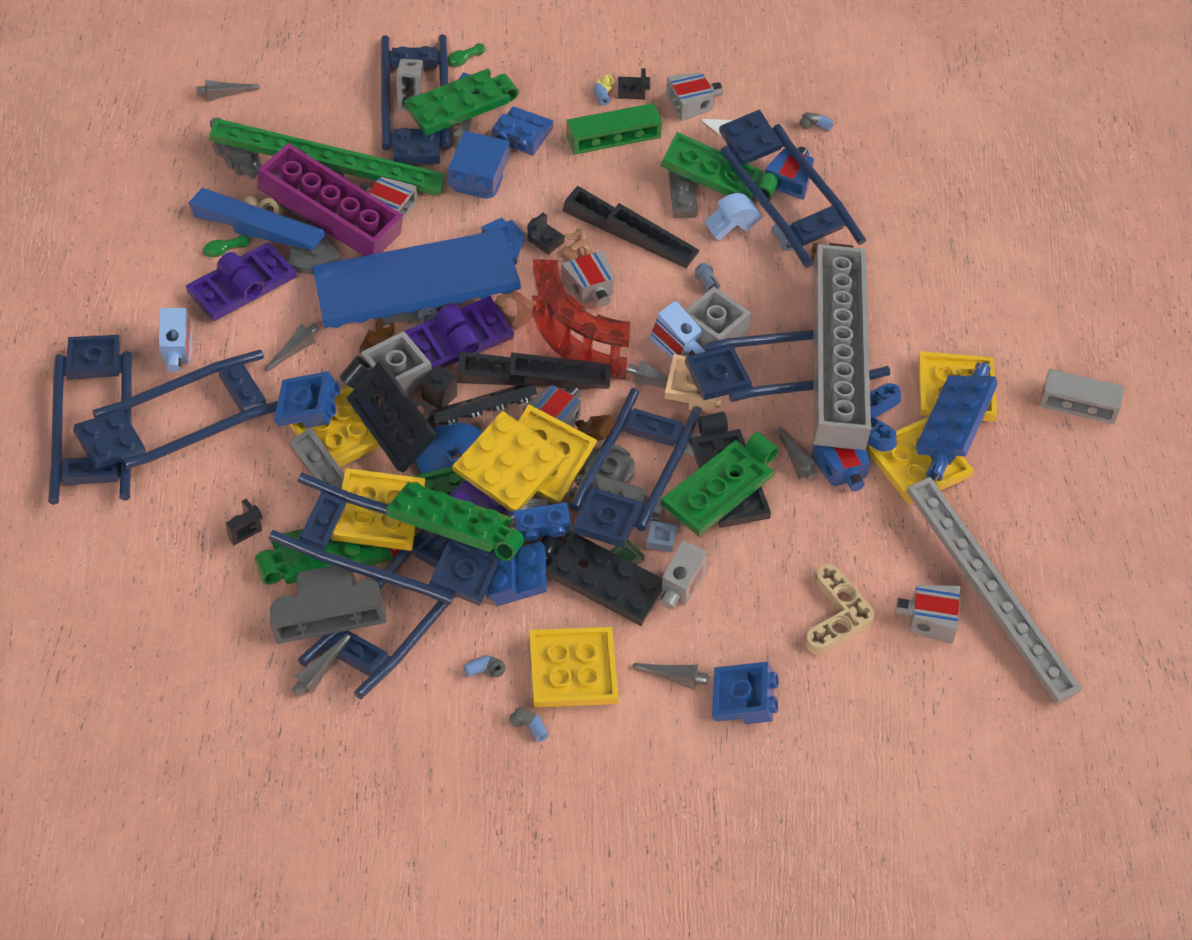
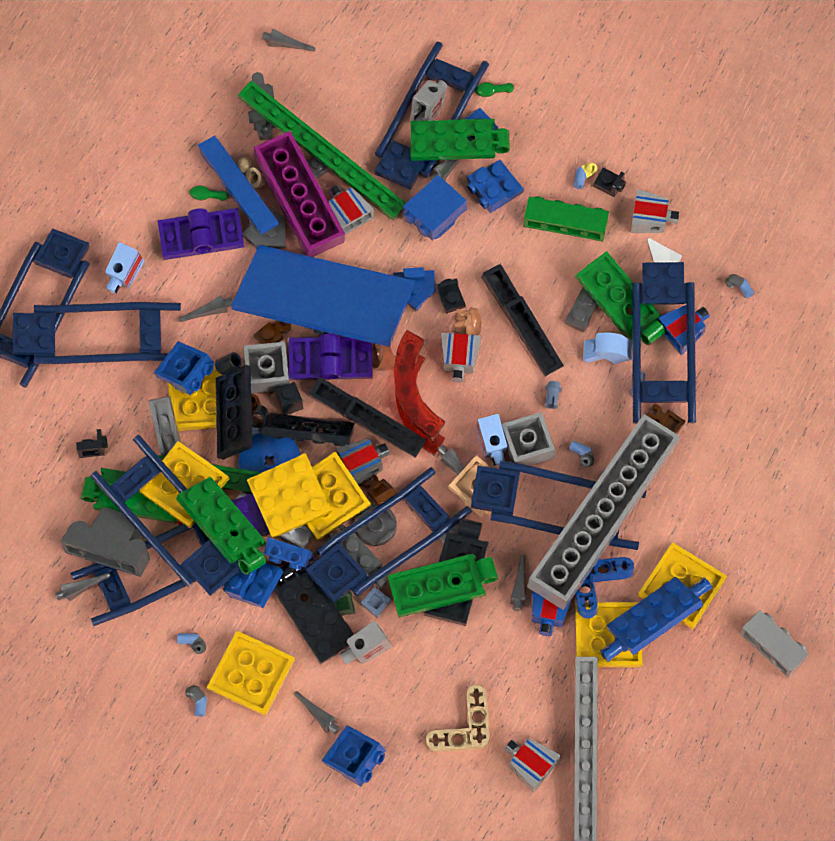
camera: 35 degrees right, 15 degrees up
(775, 314) = (584, 452): none -> arm

